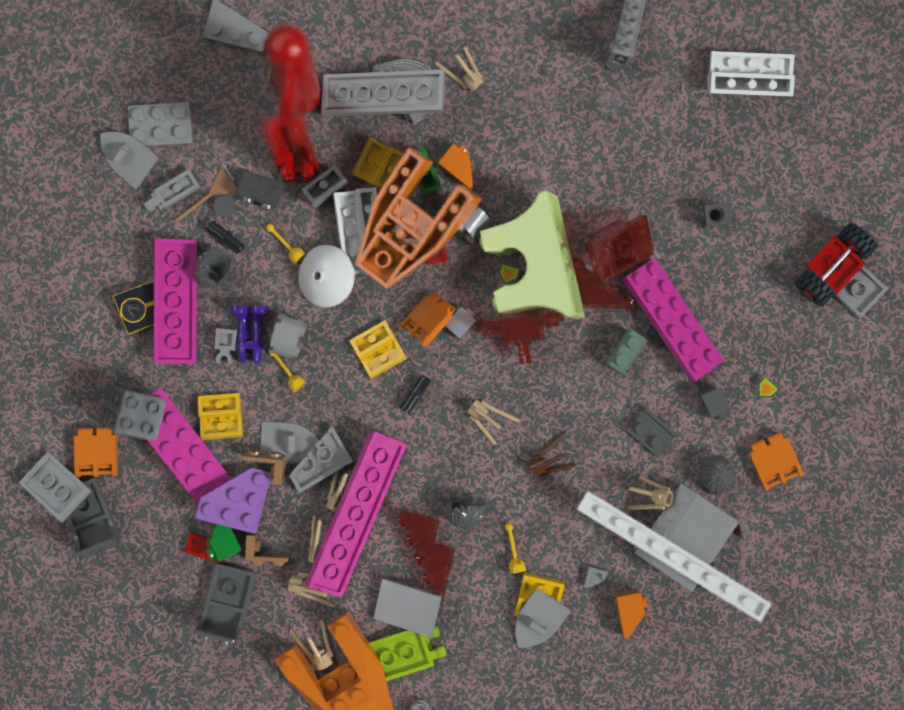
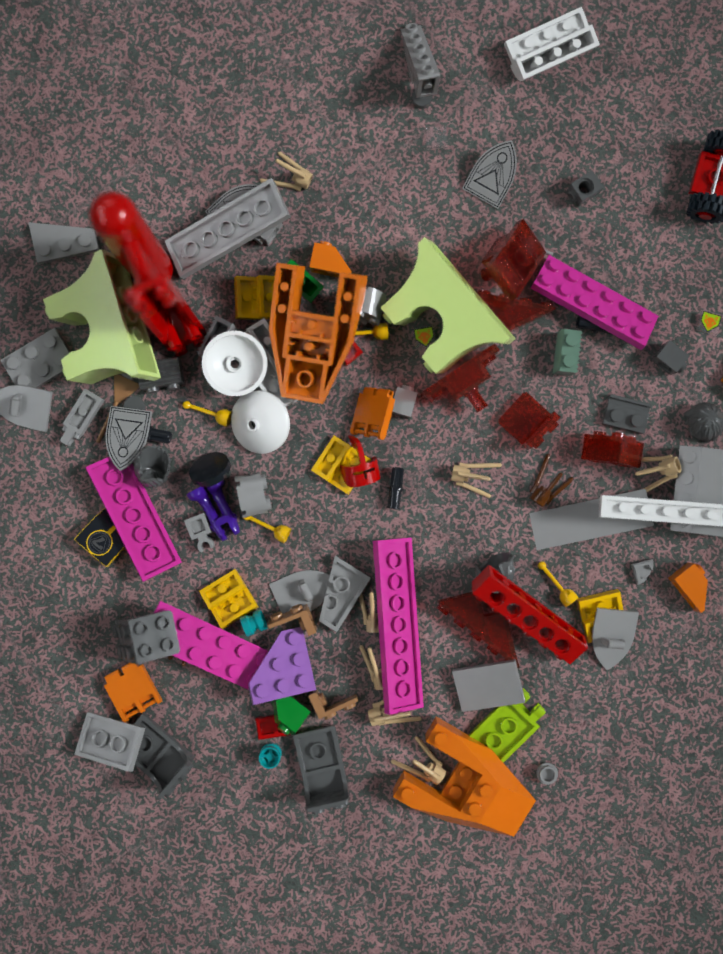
camera: 25 degrees left, 0 degrees up
(187, 570) = (269, 760): none -> teal wheel
(204, 228) = (126, 434): none -> light grey shield
(229, 448) = (252, 623): none -> teal wheel
(237, 142) = (117, 335): none -> yellowish green piece
(261, 295) = (209, 469): none -> black tile
(313, 217) = (230, 347): none -> white dish
(386, 370) = (358, 480): none -> red helmet
(455, 516) = (558, 636): none -> red brick
(470, 250) = (380, 332): none -> yellow hinge
(560, 506) = (580, 523): none -> light grey sticker
(561, 394) = (528, 421): none -> clear red bracket
(621, 457) = (613, 449): none -> clear red brick
(642, 162) = (493, 174): none -> light grey shield

